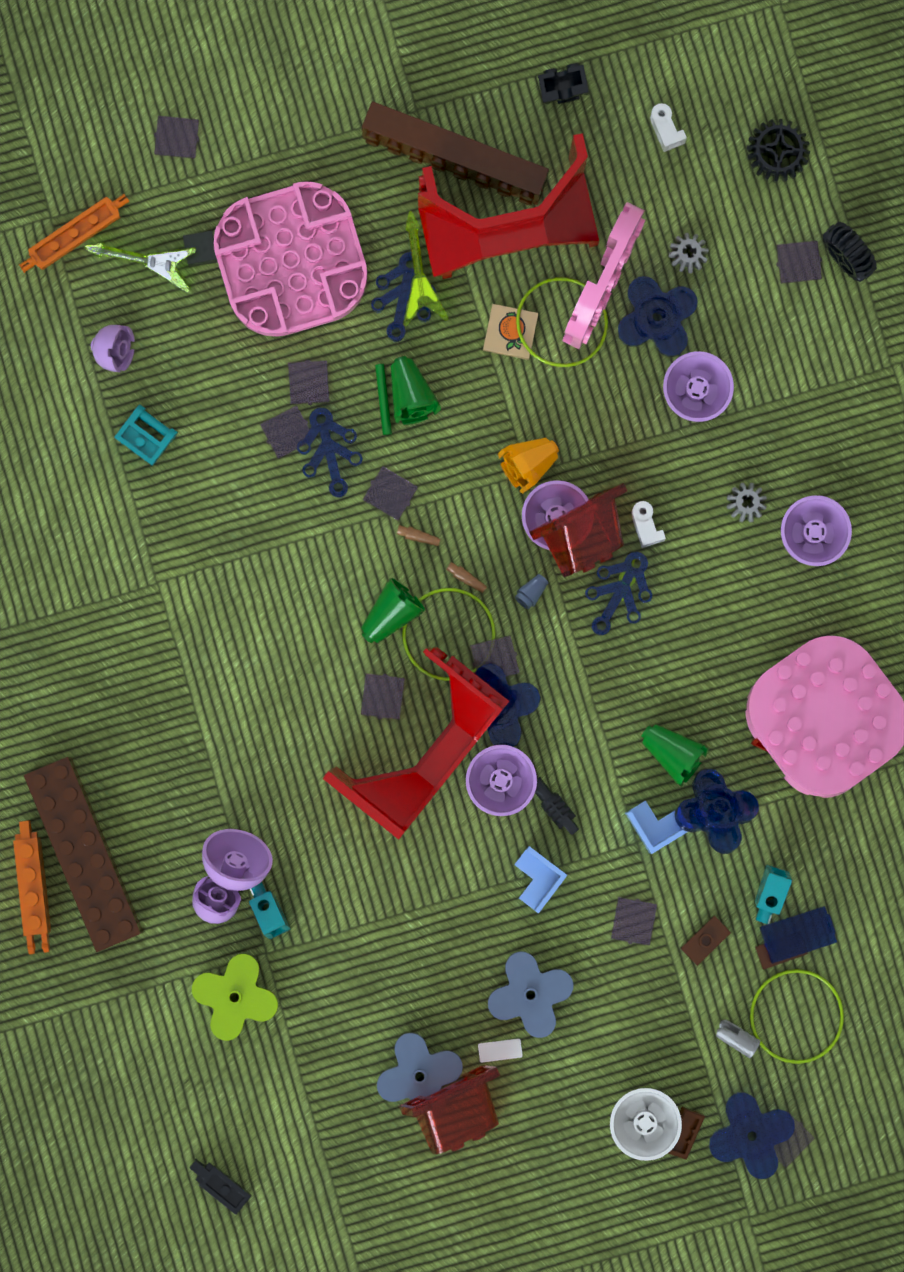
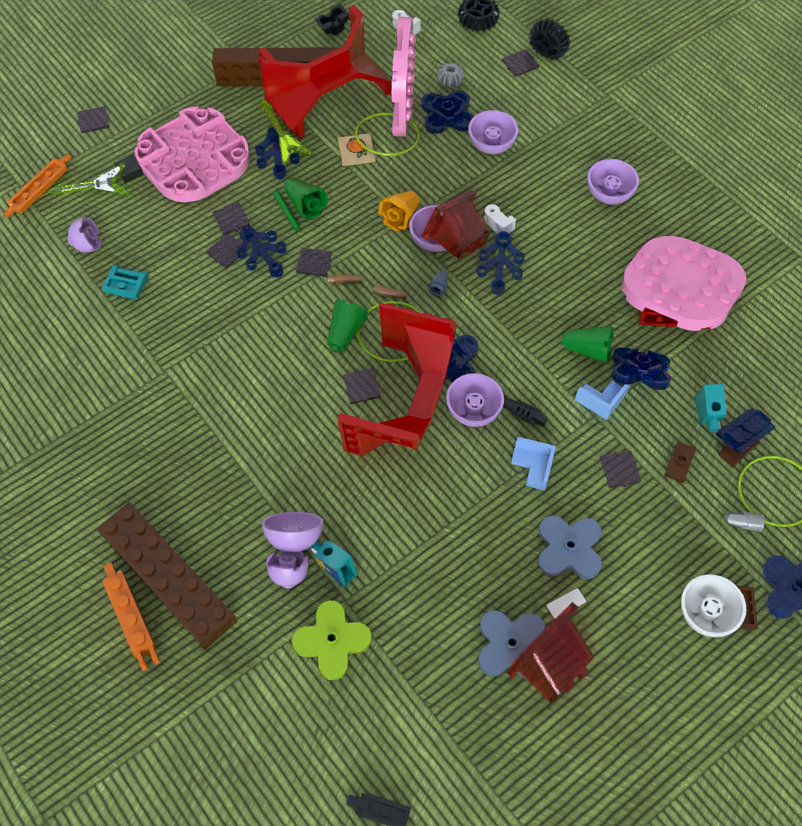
camera: 15 degrees left, 25 degrees down
(755, 502) = (557, 186): light grey gear -> none

